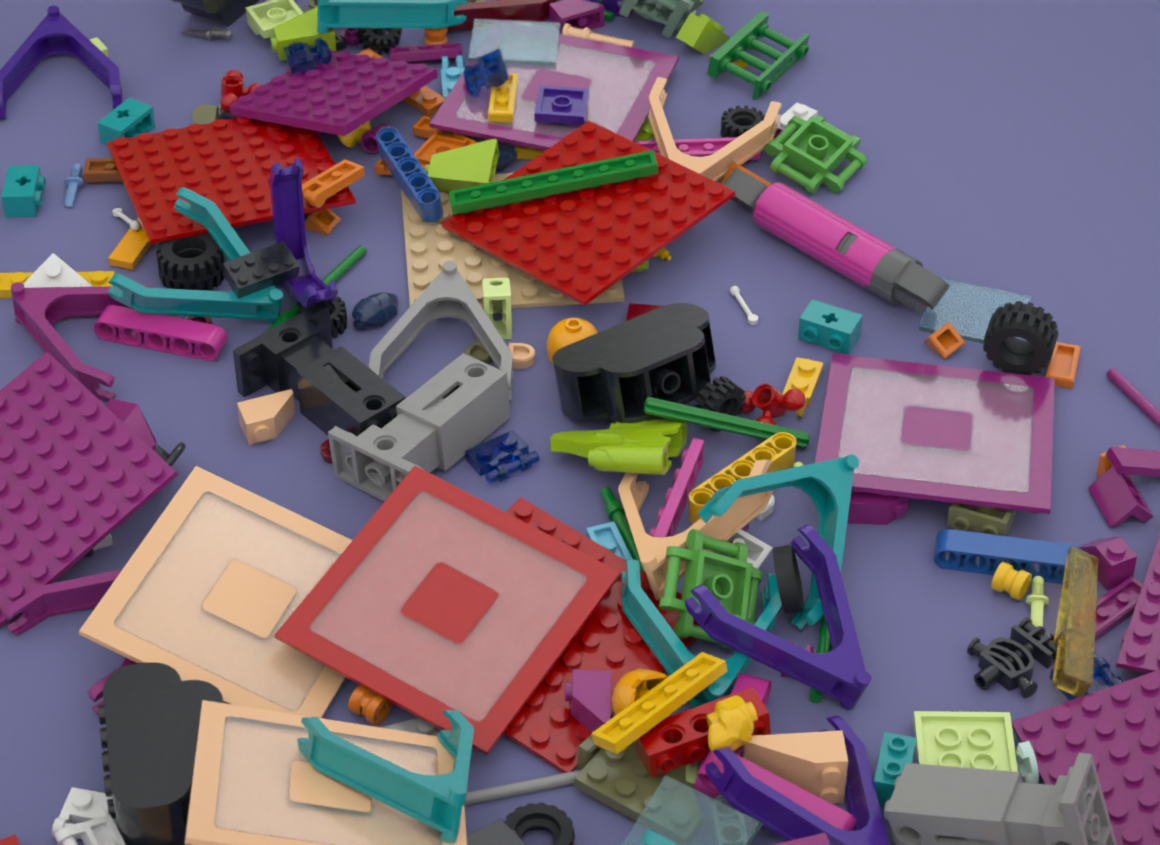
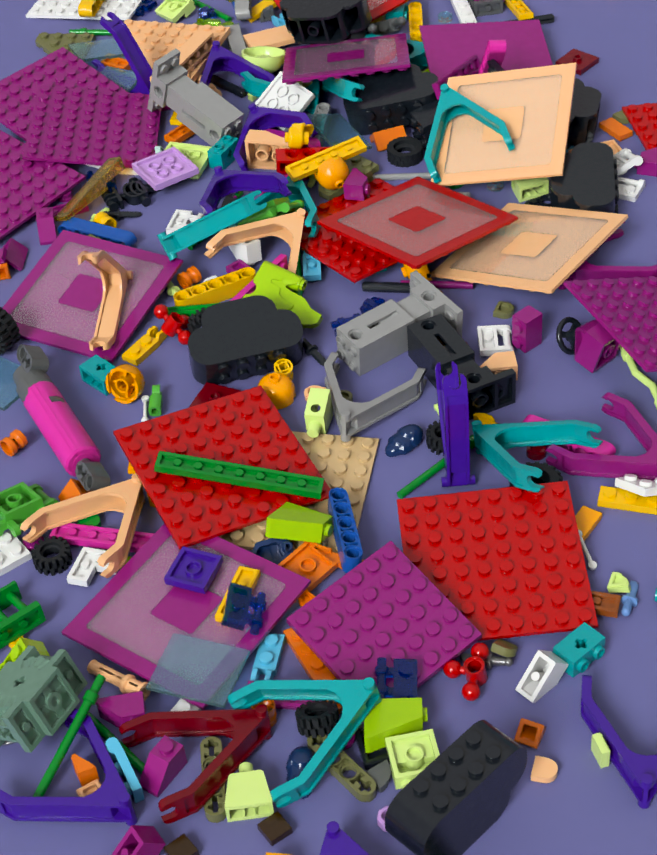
camera: 160 degrees left, 0 degrees up
(85, 193) = (618, 584): none -> yellowish green tile
(153, 42) = (544, 770): none -> light nougat tile
(162, 98) = (541, 675): none -> white slope
(169, 67) = (529, 733): none -> orange slope
(232, 456) = (527, 329): none -> magenta brick
(260, 269) = (490, 429): black piece -> none
(290, 461) = (489, 341): none -> white plate
(331, 182) = (413, 500): orange plate -> none
(484, 485) = (371, 303): none -> clear blue piece
(548, 416) = (313, 350): none -> black piece
(694, 125) = (86, 567): none -> white plate
(732, 309) = (155, 401): none -> bright green bar
(782, 308) = (125, 383): none -> light orange cylinder
(794, 501) = (189, 277): none -> orange wheel
(881, 601) = (180, 219): none -> white plate
(883, 225) = (12, 443): none -> orange wheel
(884, 388) = (114, 288): none -> light nougat piece
(974, 693) = (165, 168): none -> lavender plate
(1004, 614) = (118, 214): none -> black piece

